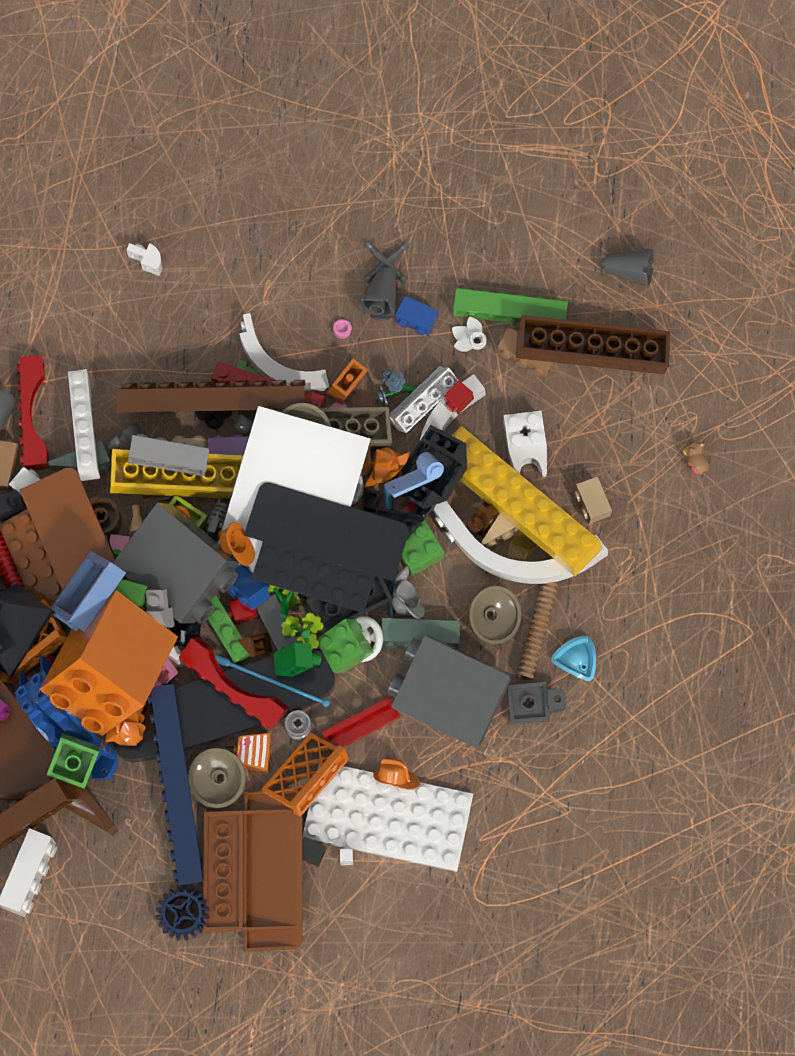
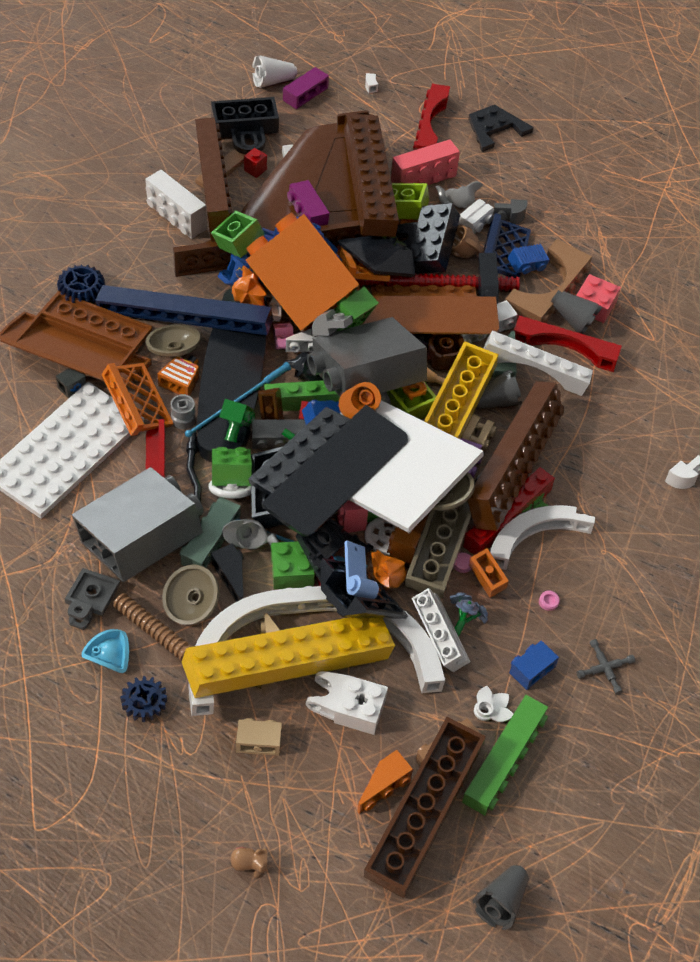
camera: 110 degrees right, 20 degrees down
(95, 596) = (374, 284): medium blue window -> none
(168, 455) = (472, 388): light grey brick -> none
(202, 659) = (212, 381): red arch -> none
(311, 623) = (254, 439): lime plant -> none
(346, 856) = (49, 401): white piece -> none
(380, 295) = (571, 641): dark grey cone -> none
(396, 773) = (92, 462): orange piece -> none
(397, 661) = (191, 449): none -> black bar
(449, 596) = (228, 565): none -> black slope
(458, 398) = (424, 649): red brick -> none
(481, 519) = (289, 618): reddish brown hips -> none
(577, 389) = (388, 775): none -> orange slope
(612, 611) = (136, 705): none -> dark blue gear

